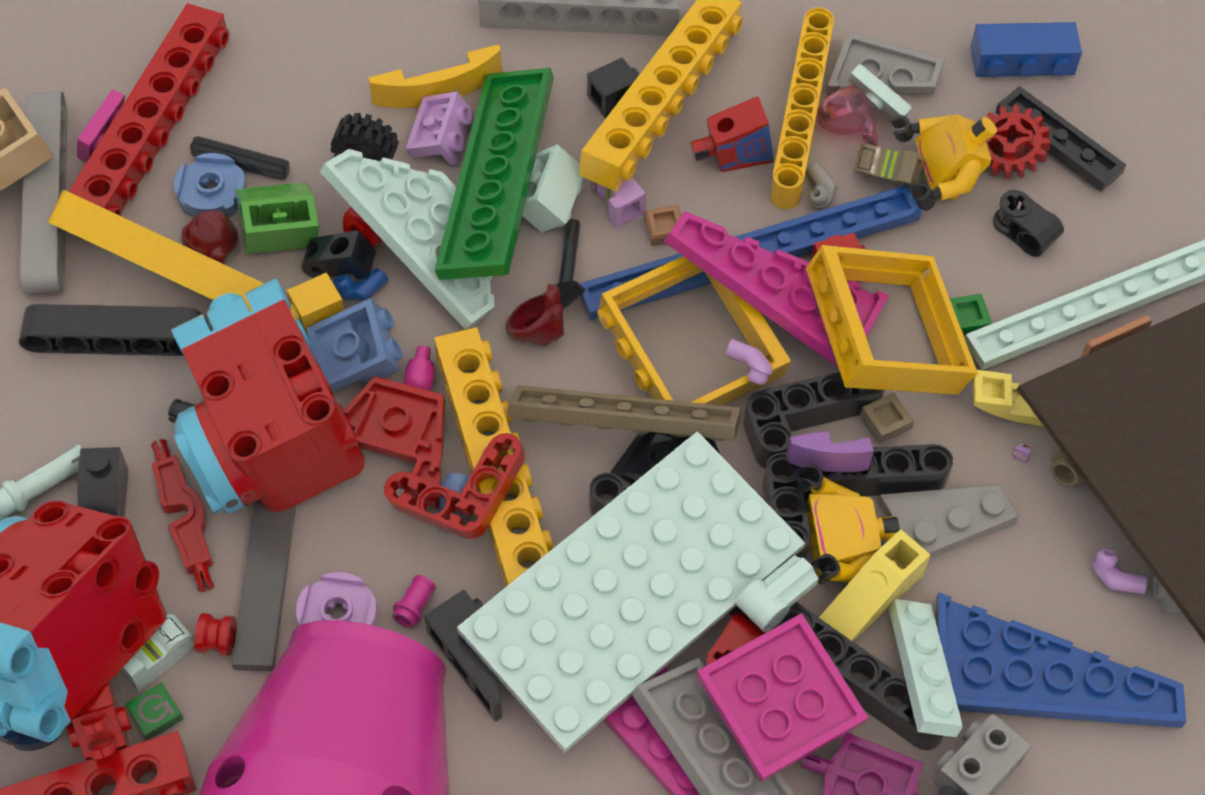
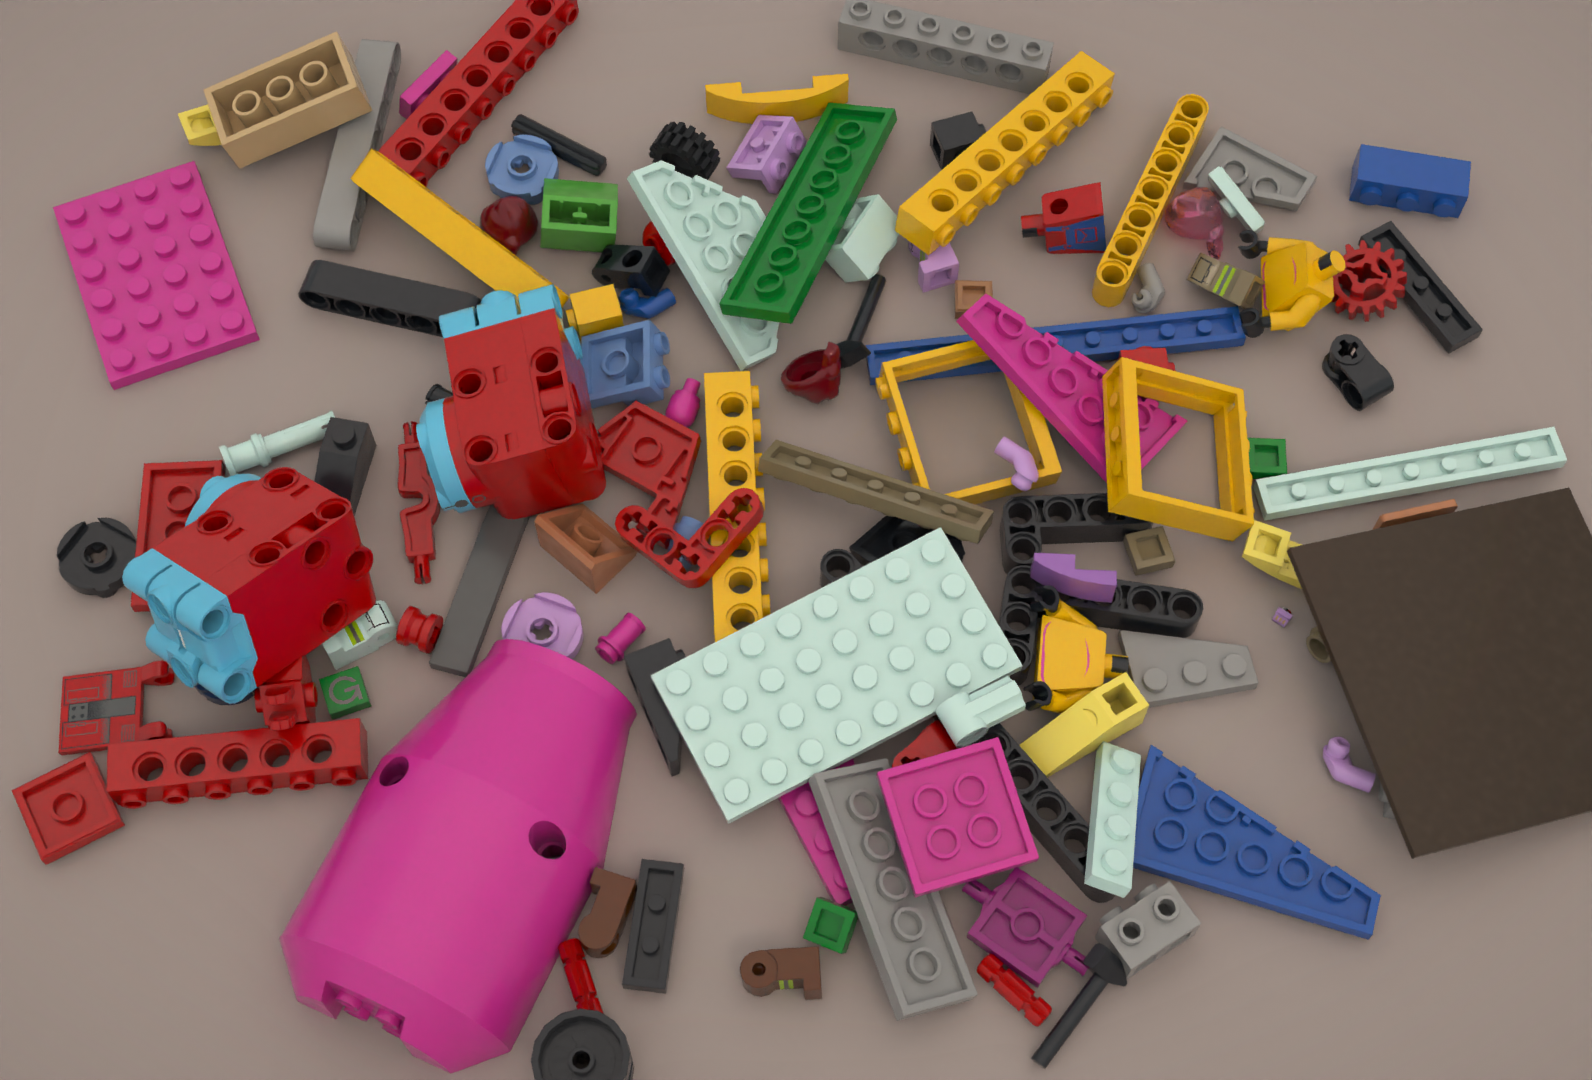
camera: 15 degrees right, 5 degrees up
(356, 521) = (583, 544): none -> nougat slope

